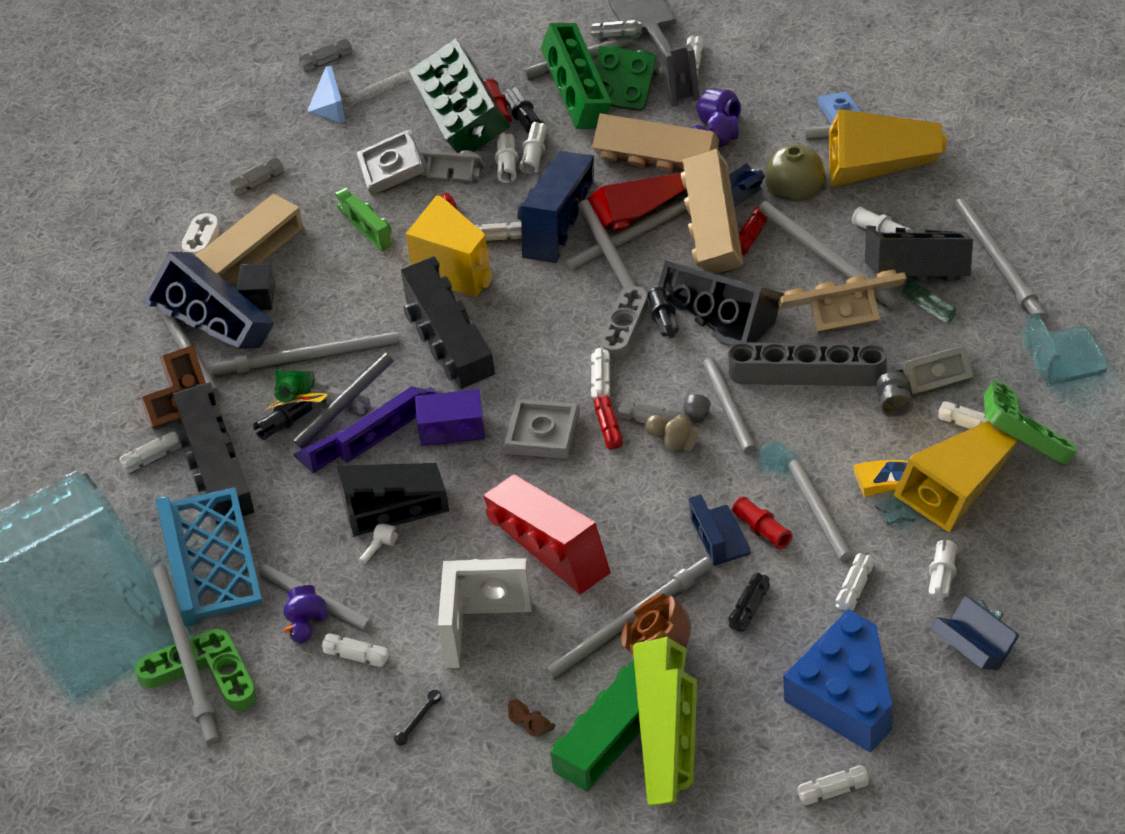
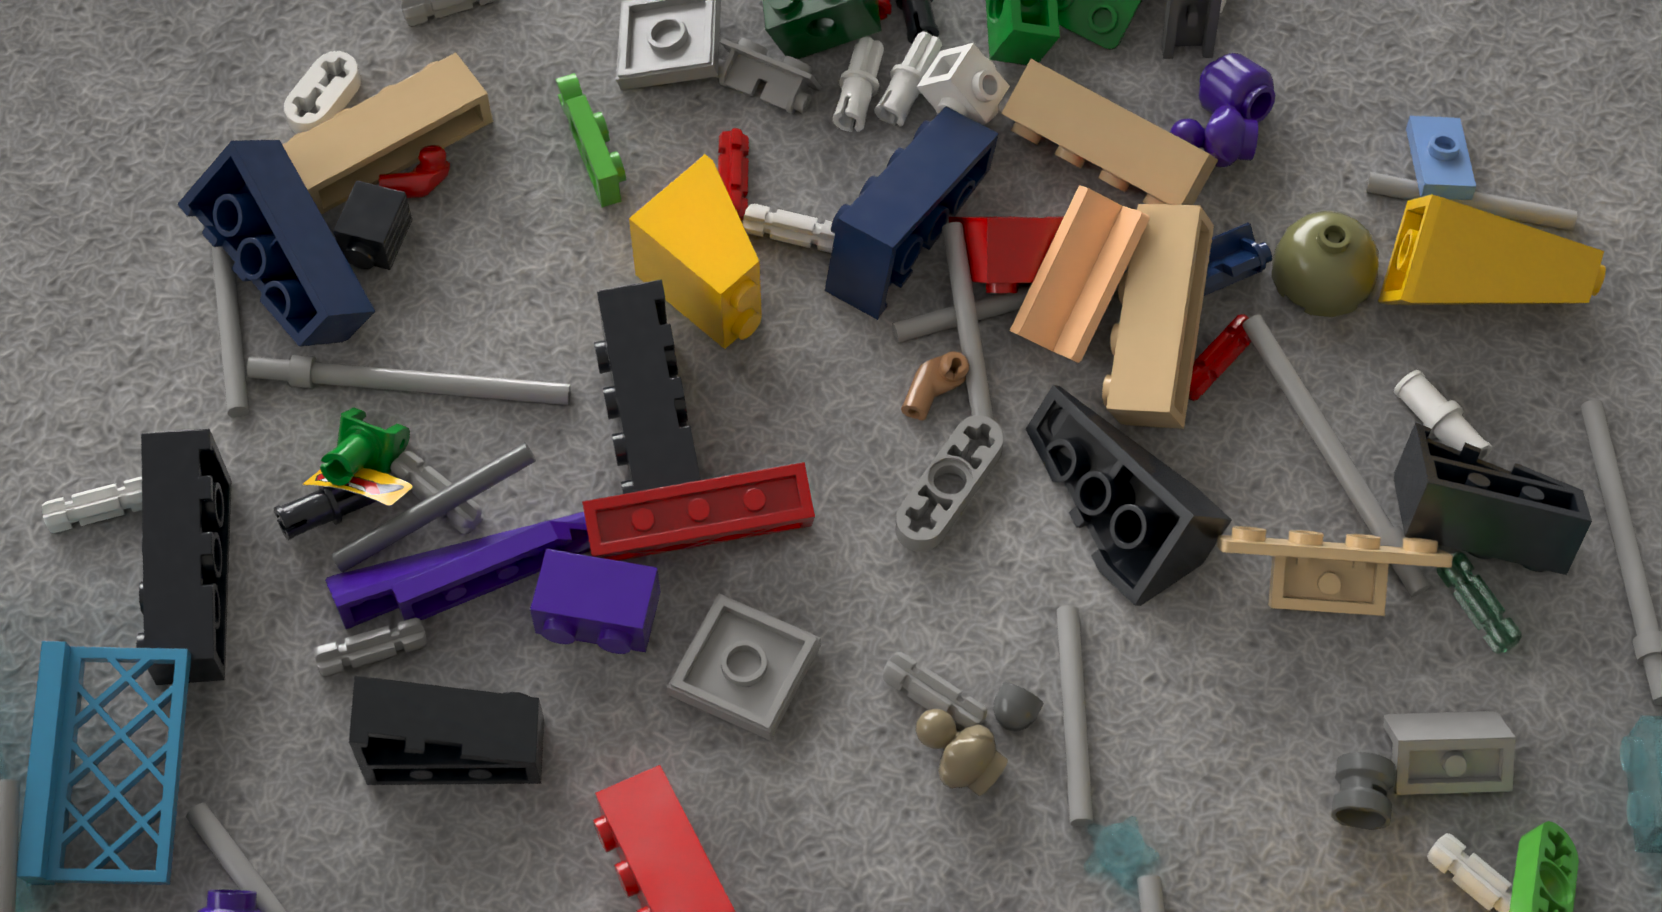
camera: 10 degrees right, 15 degrees up
(182, 373) = (182, 398): dark orange brick -> none
(277, 257) = (424, 177): none -> red arm
(328, 475) = (370, 646): none -> light grey axle
(382, 535) = (411, 804): white hand -> none
(496, 361) = (699, 513): none -> red fence
(565, 136) = (965, 83): none -> white brick
(599, 278) = (934, 379): none -> medium nougat arm
(600, 373) = (877, 582): white axle -> none
(608, 422) = (859, 686): red axle -> none
(661, 204) = (1079, 274): none -> light nougat panel
(663, 312) = (1020, 485): black axle -> none
(806, 364) = (1260, 671): dark grey beam -> none

